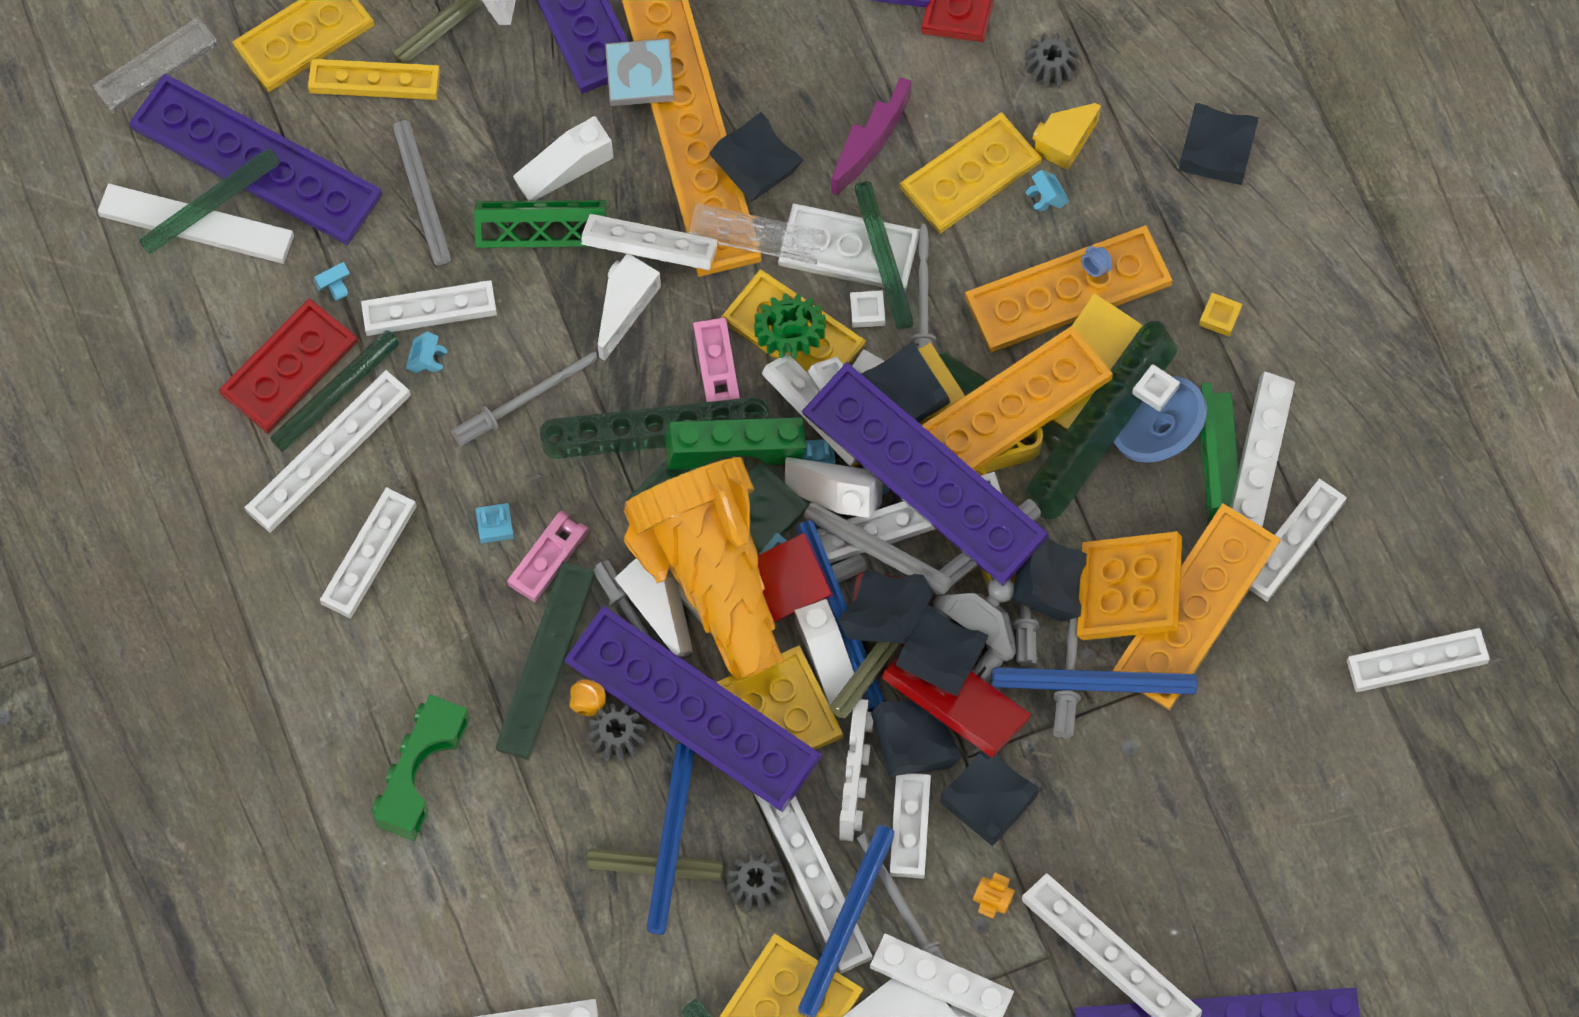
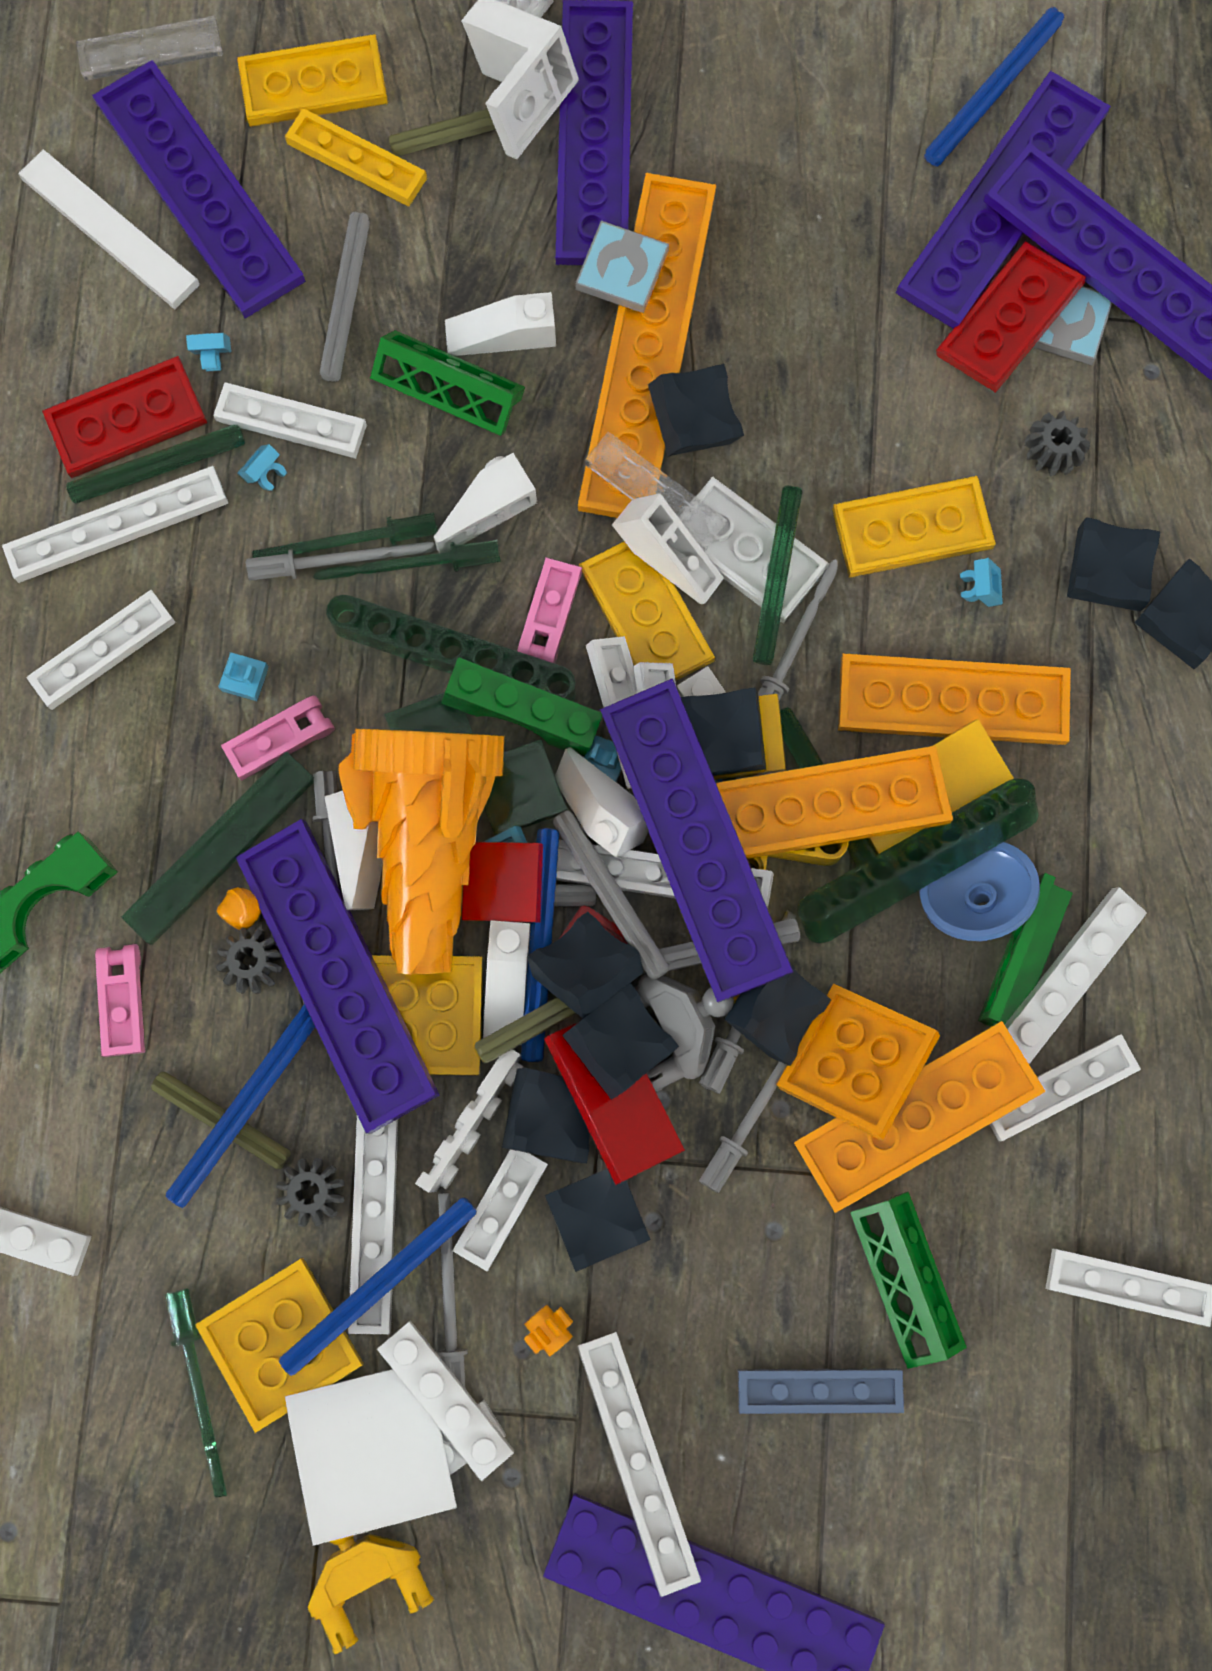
camera: 25 degrees right, 10 degrees up
(209, 201) = (127, 210): clear green axle -> none
(528, 813) = (120, 1001): none -> bright pink plate
(560, 354) = (396, 529): none -> clear green piece
(621, 352) = (460, 556): none -> clear green piece
(649, 241) = (540, 451): white plate -> none
(785, 270) = (667, 546): none -> white slope
(790, 326) = (640, 607): green gear -> none
(866, 142) = (819, 445): magenta slope -> none
(867, 309) = (733, 624): white plate -> none
(1065, 134) = (1033, 529): yellow slope -> none
(1094, 680) = (770, 1147): blue axle -> none
(1096, 261) = (998, 685): medium blue plate -> none
(1140, 133) = (1113, 565): none -> black brick
(1156, 388) = (992, 856): white plate -> none
(1220, 314) = (1102, 801): yellow plate -> none
(1223, 843) = (820, 1391): none -> sand blue plate
(1257, 725) = (920, 1278): none -> green fence

